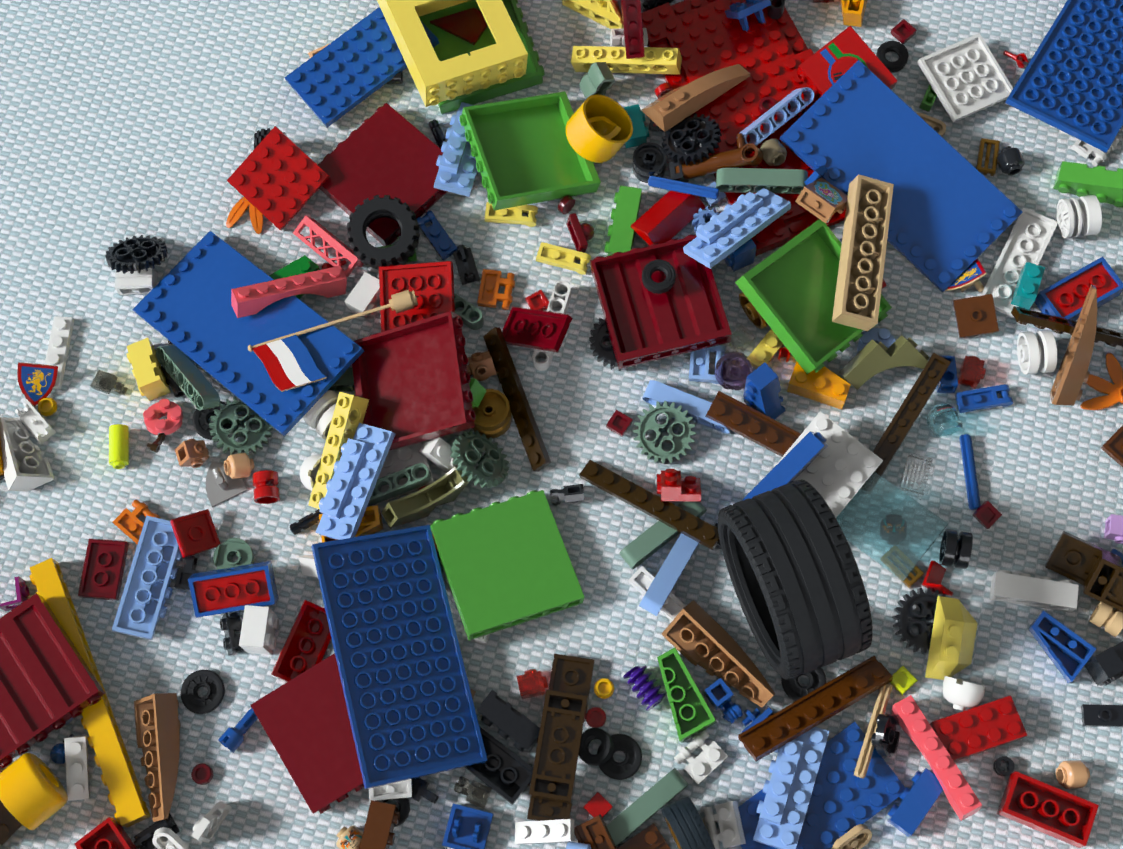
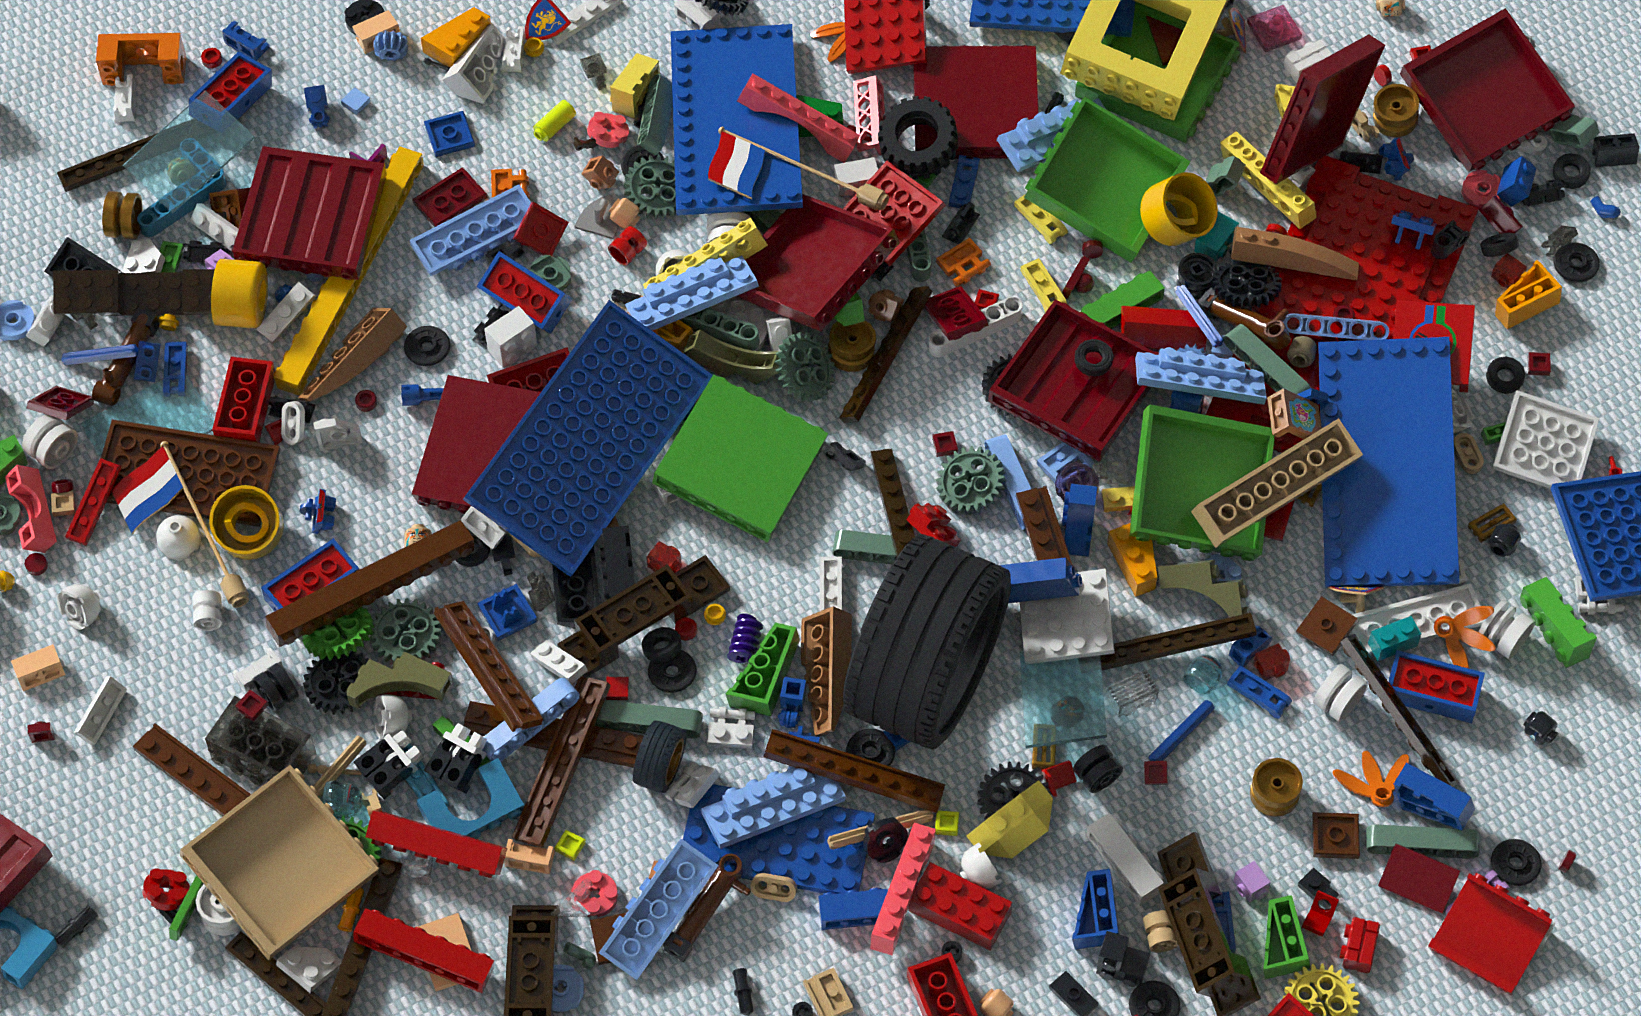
camera: 40 degrees right, 10 degrees down
(52, 523) = (449, 134): none -> blue tile
(668, 574) = (846, 579): light blue beam -> none
(1053, 243) = (1459, 632): none -> orange plant
(1067, 451) = (1276, 787): none -> pearl gold wheel
(1078, 354) = (1351, 727): medium nougat wedge -> none

